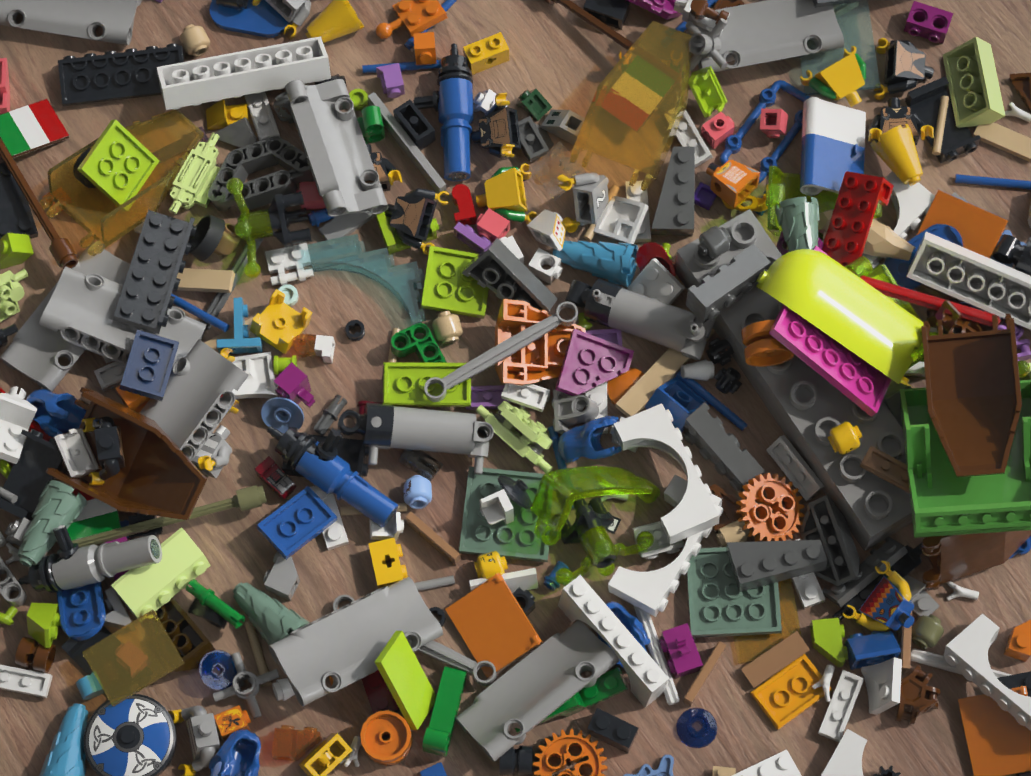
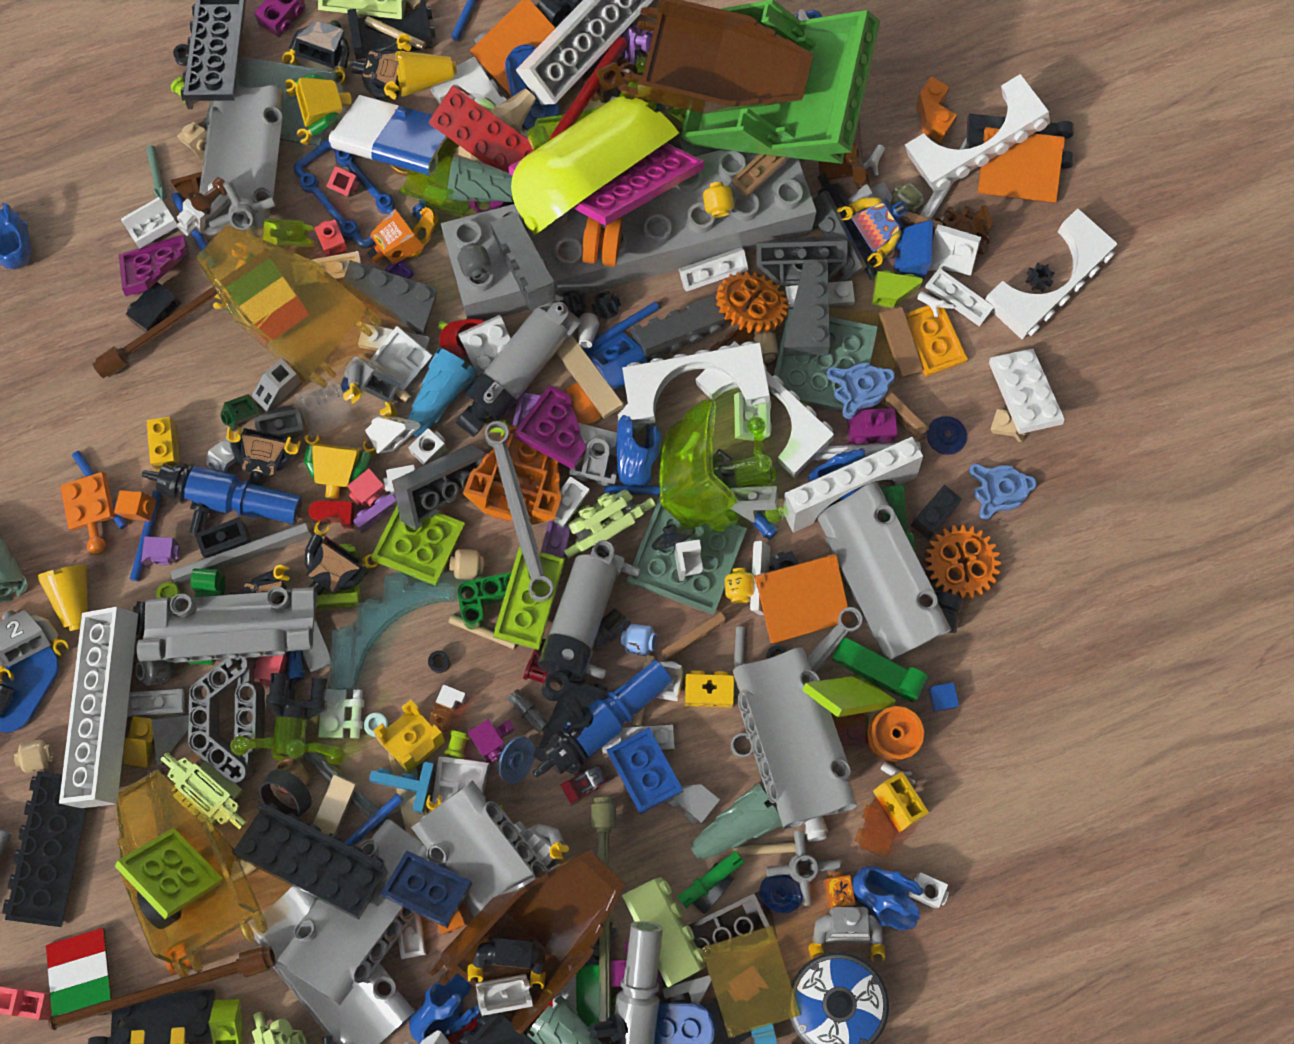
camera: 80 degrees left, 5 degrees up
(569, 552) = (753, 499): none -> light grey slope
(714, 627) = (860, 386): none -> medium blue tile

